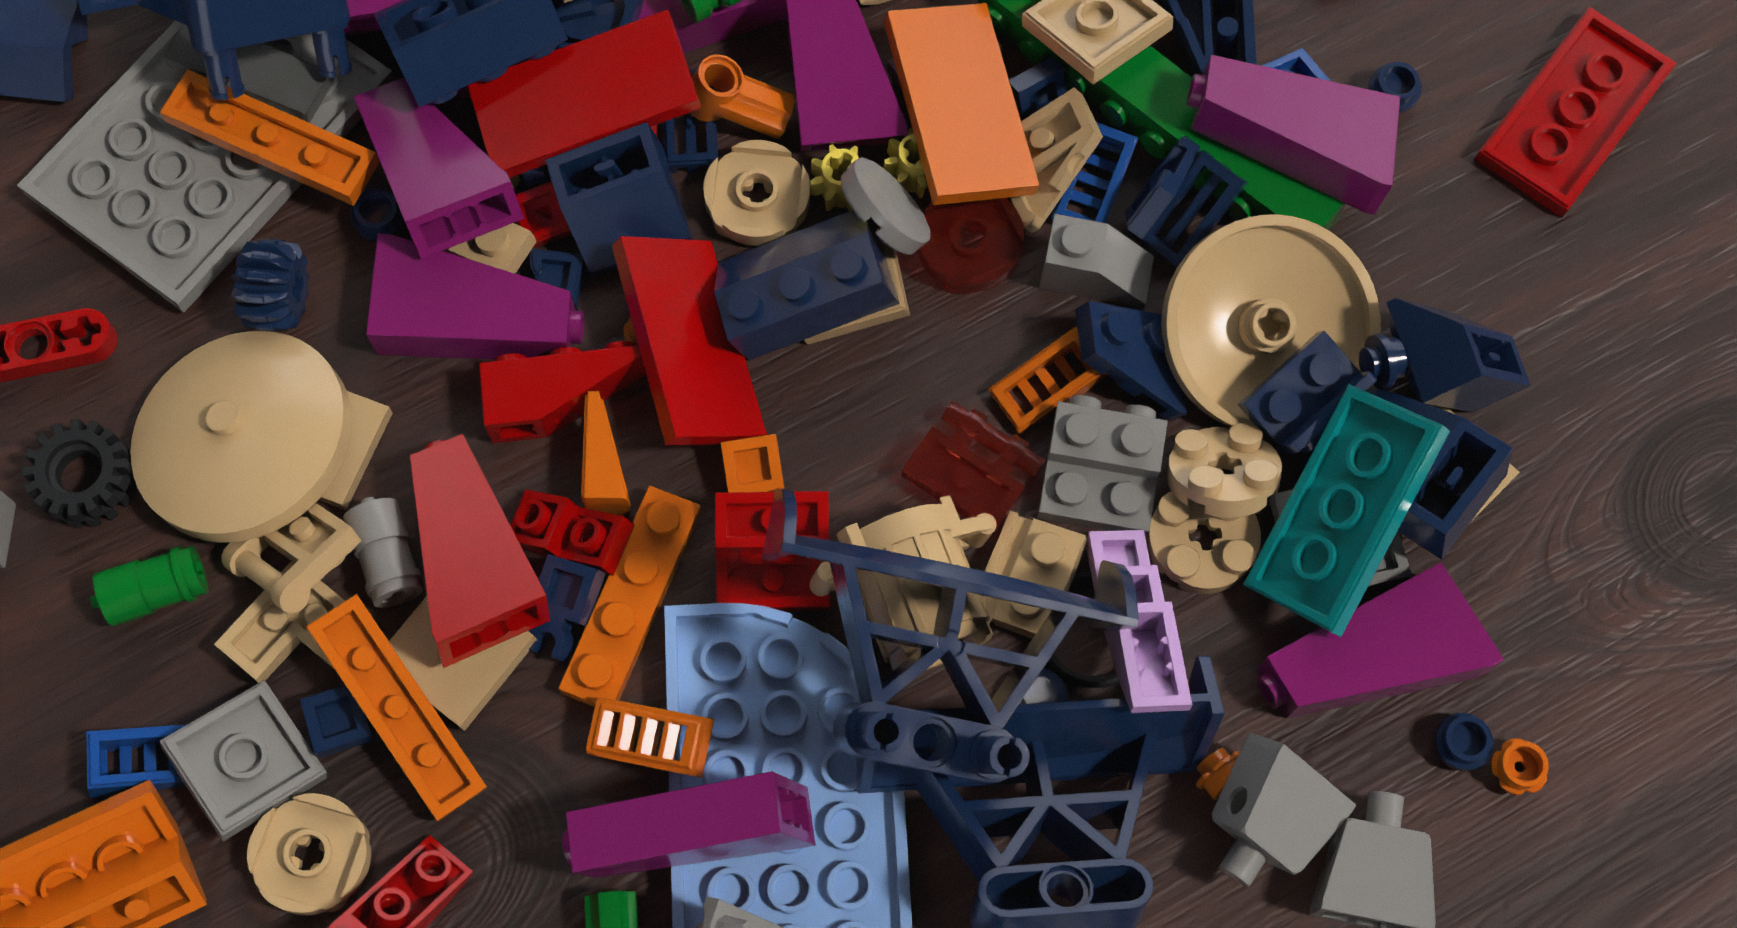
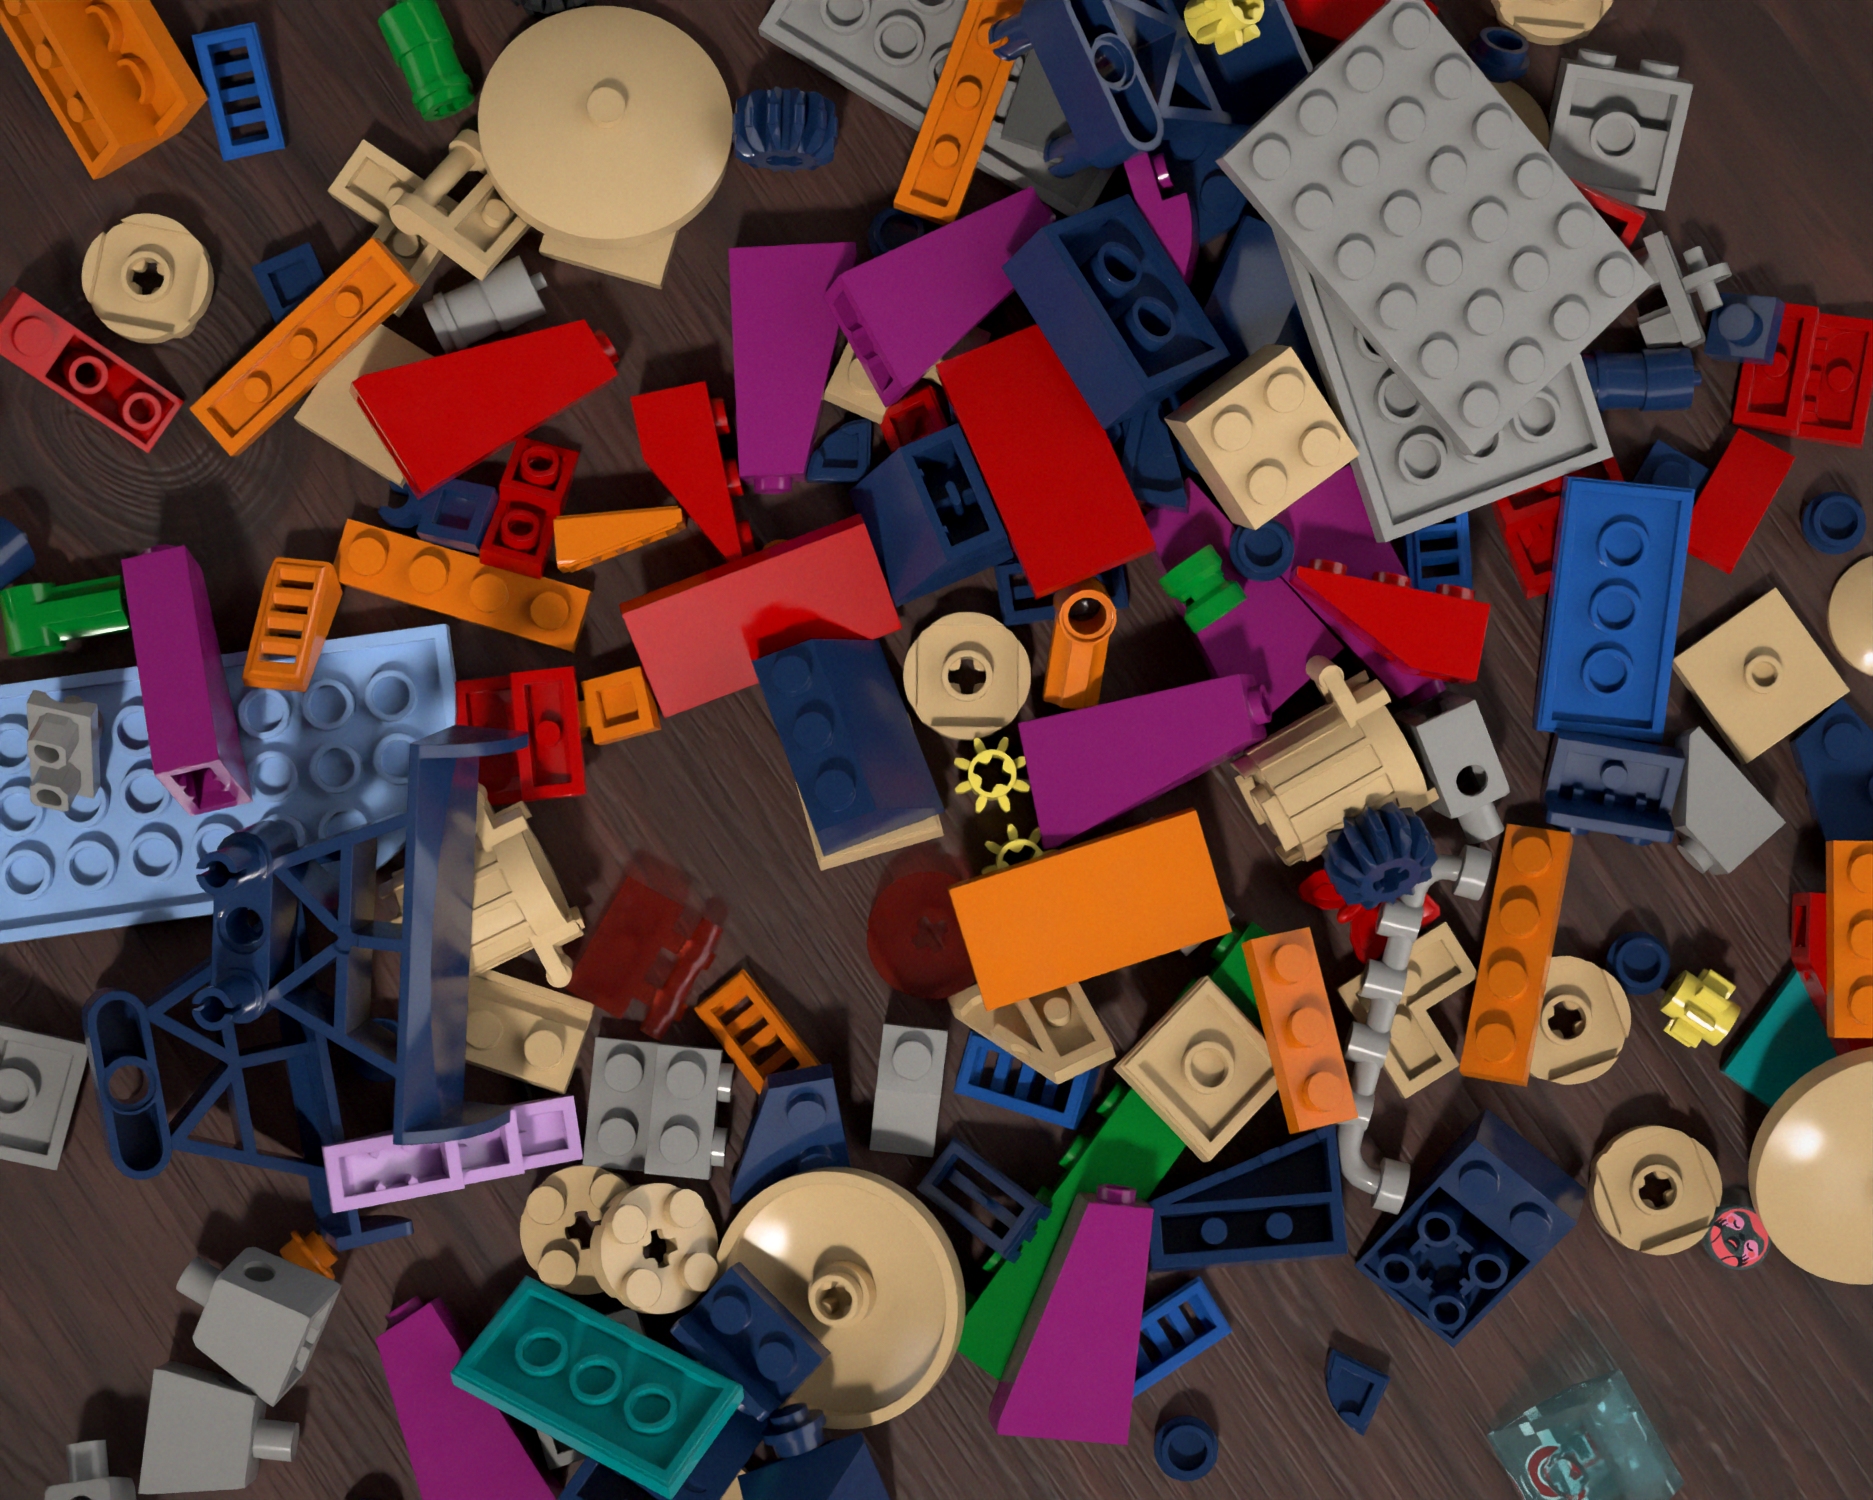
camera: 85 degrees right, 15 degrees up
(243, 760) = (242, 192): light grey tile -> none
(880, 196) = (934, 829): light grey tile -> none
(1037, 87) = (1128, 1003): dark blue plate -> none
(1161, 187) = (1001, 1158): dark blue tile -> none

